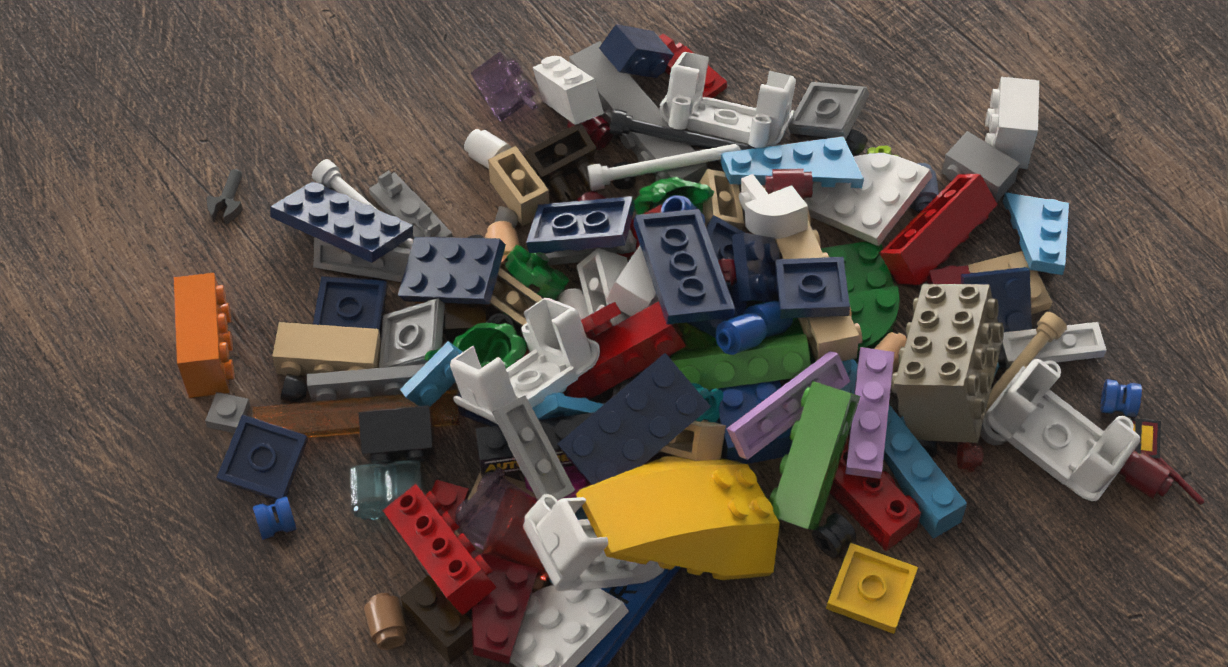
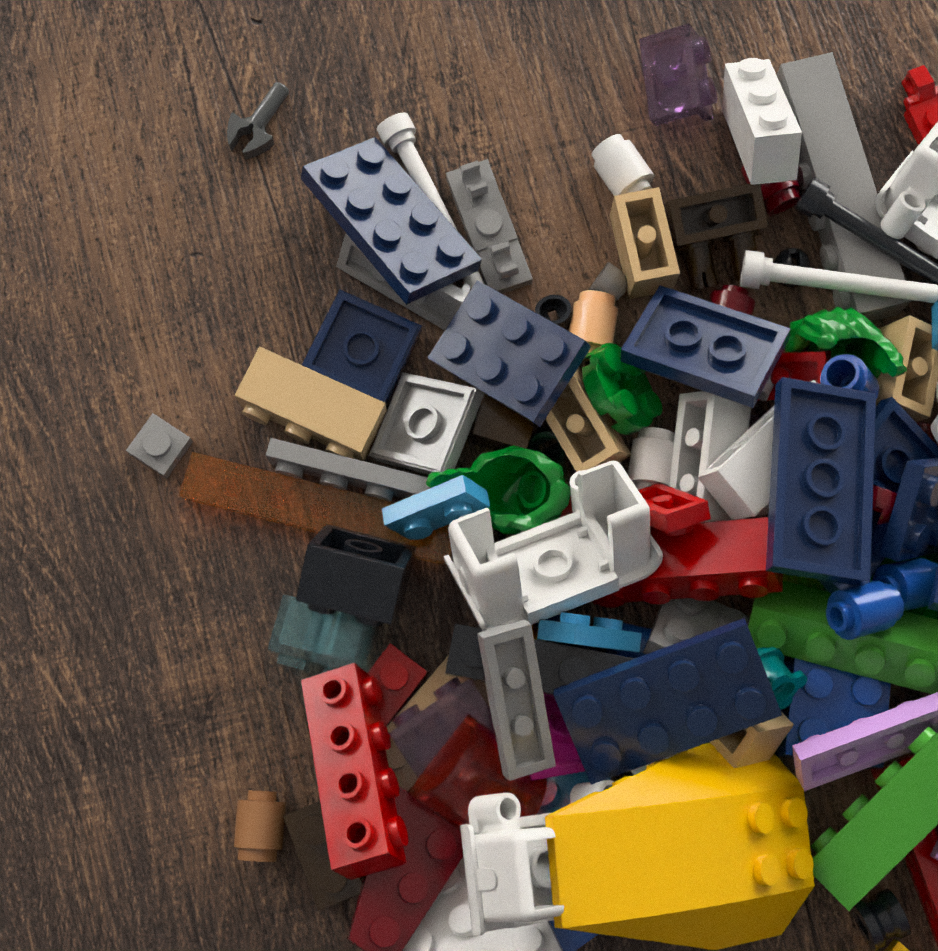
camera: 20 degrees right, 20 degrees up
(203, 335) = (154, 330): orange brick -> none
(262, 458) = (178, 535): dark blue plate -> none
(266, 520) = (167, 626): blue wheel -> none
(293, 388) = (252, 442): black hinge -> none
(636, 51) = (877, 87): dark blue brick -> none

